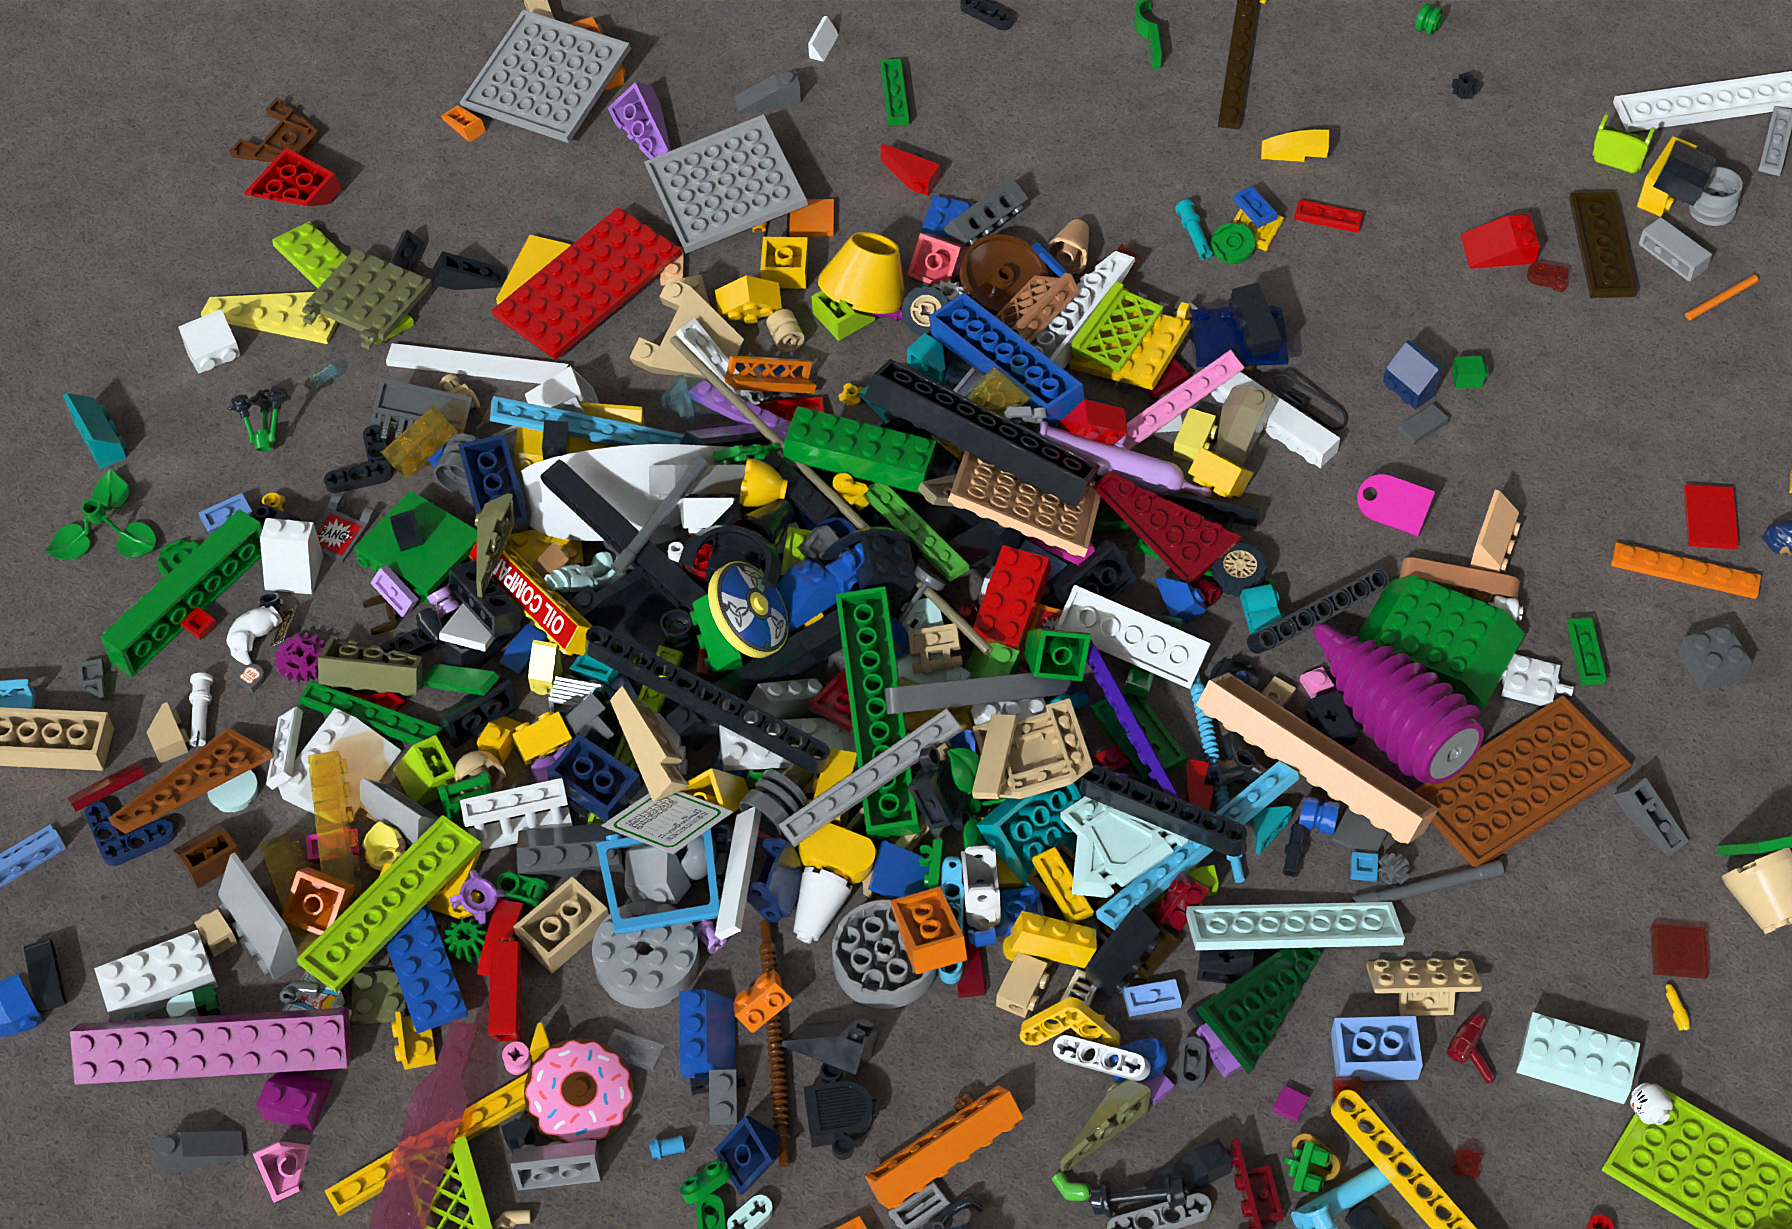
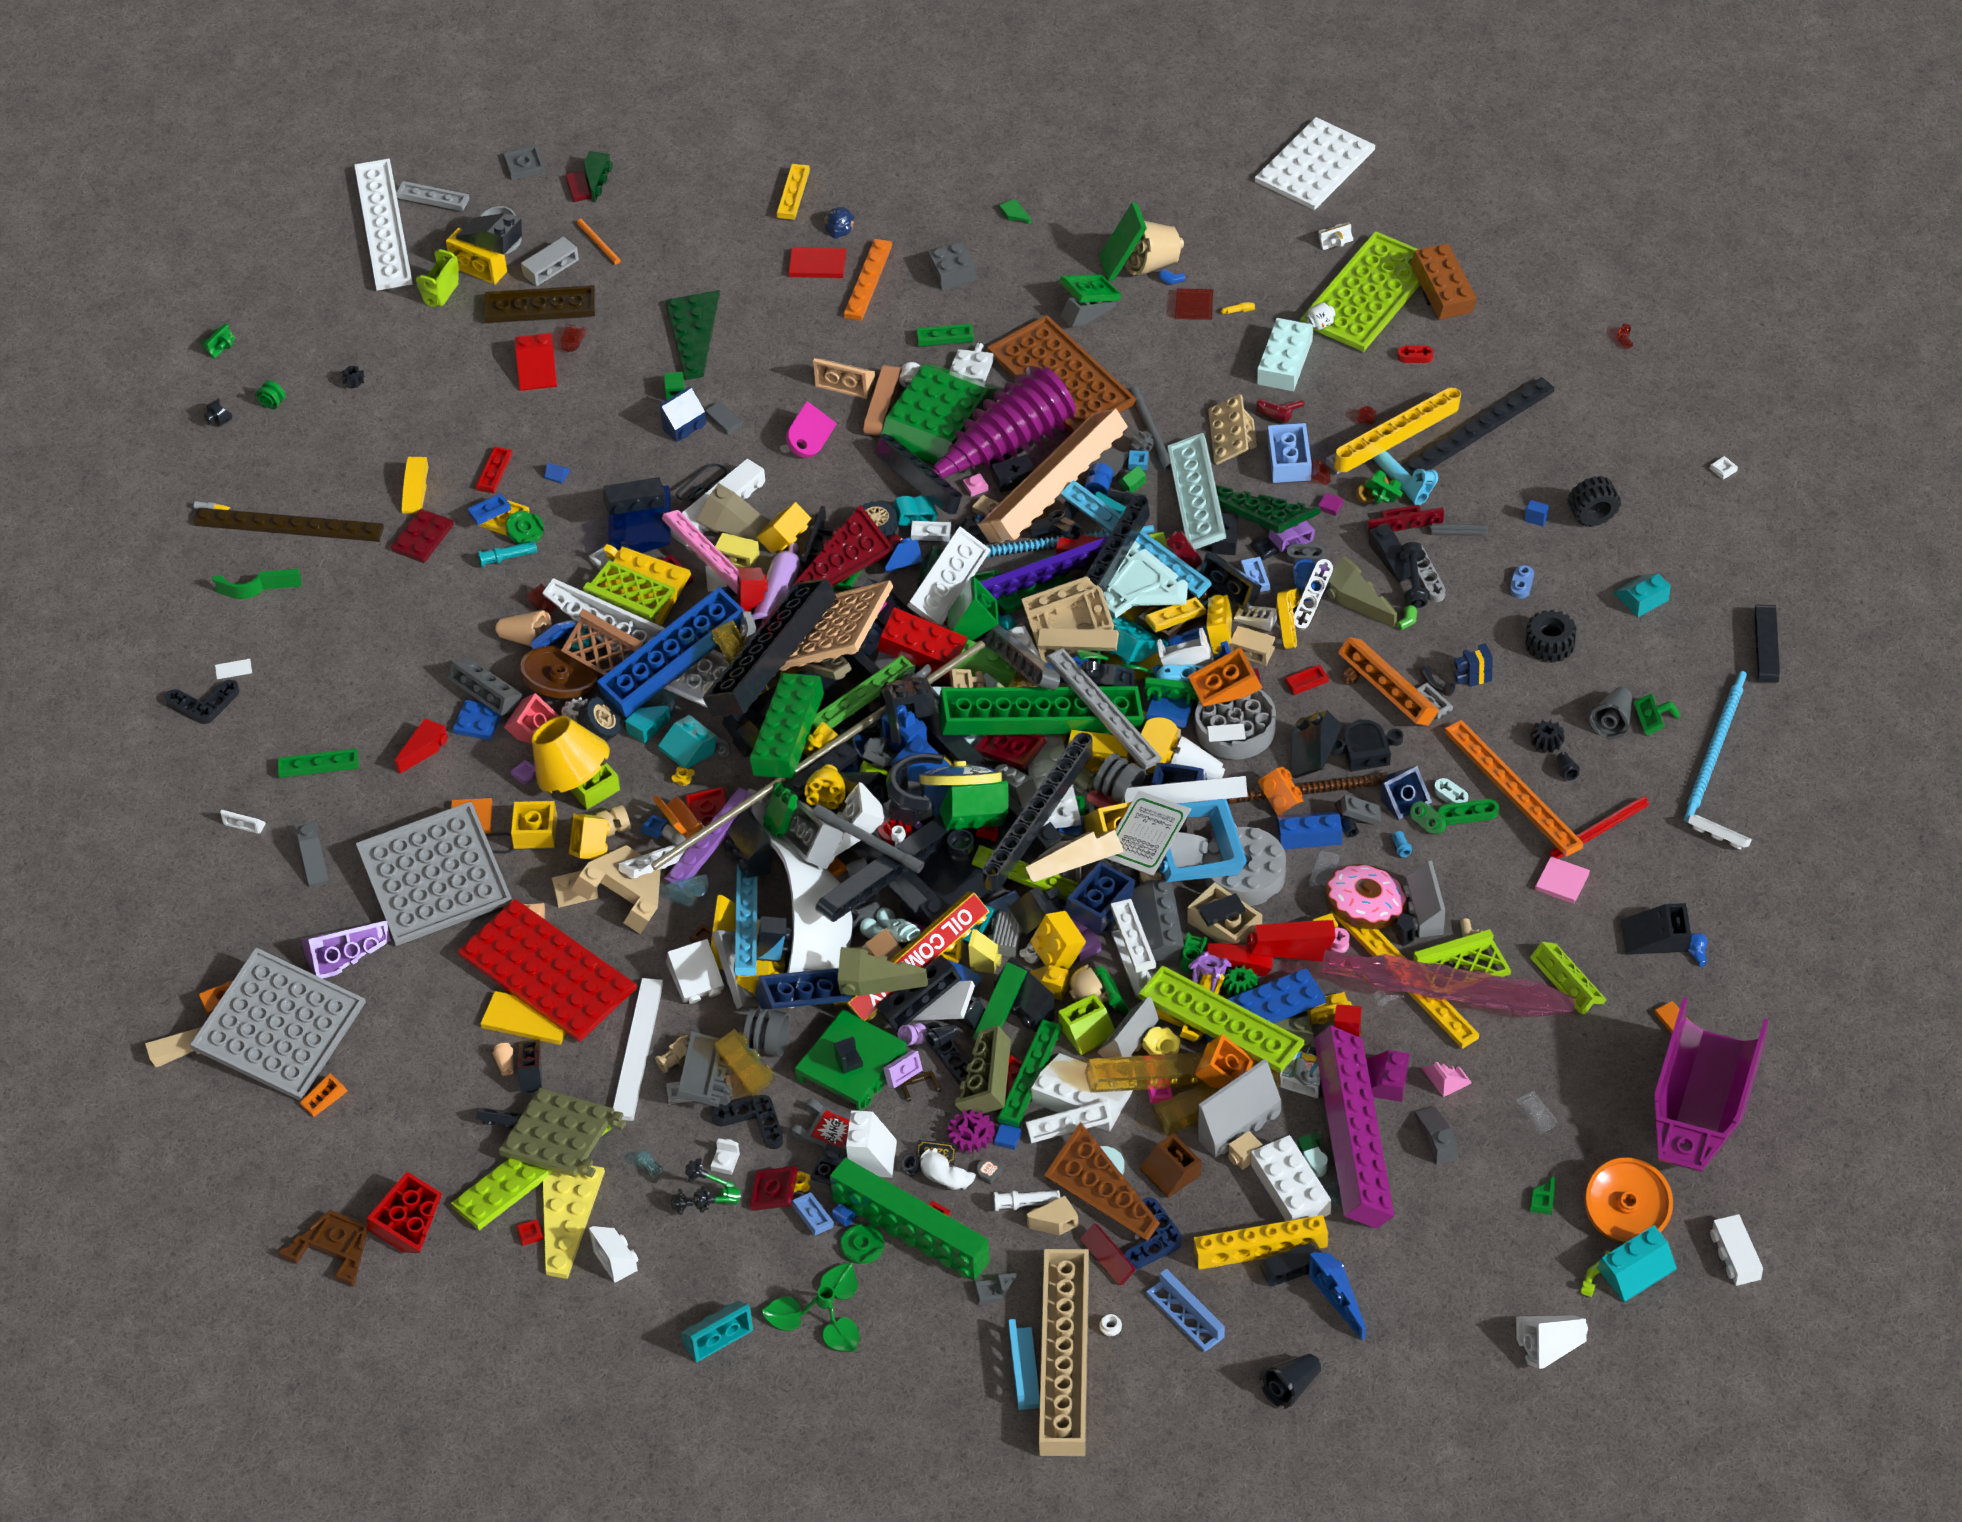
camera: 90 degrees left, 5 degrees down
(11, 782) = (1110, 1319): none -> white plate
(79, 941) = (1258, 1241): none -> yellow brick
(263, 284) = (529, 1232): none -> red tile
(265, 479) = (773, 1188): none -> dark red tile
(289, 695) = (1007, 1137): none -> blue tile
(318, 440) = (725, 1156): none -> white bracket
(363, 1054) = (1348, 1018): none -> red panel
(482, 253) = (504, 1058): none -> light nougat cone
(557, 911) = (1221, 909): none -> black tile
(851, 933) = (1226, 732): none -> white sticker
(965, 1052) = (1306, 679): none -> red tile
(1035, 24) = (233, 669): none -> white sticker
(1224, 159) = (422, 535): none -> dark red plate
(1231, 631) = (931, 531): none -> white plate
(1325, 857) = (1133, 479): none -> green piece
(1326, 270) = (556, 473): none -> blue slope
(1579, 391) = (693, 326): none -> dark green wing
(1683, 814) = (1090, 288): none -> green tile
(1726, 923) = (1170, 278): none -> blue arm

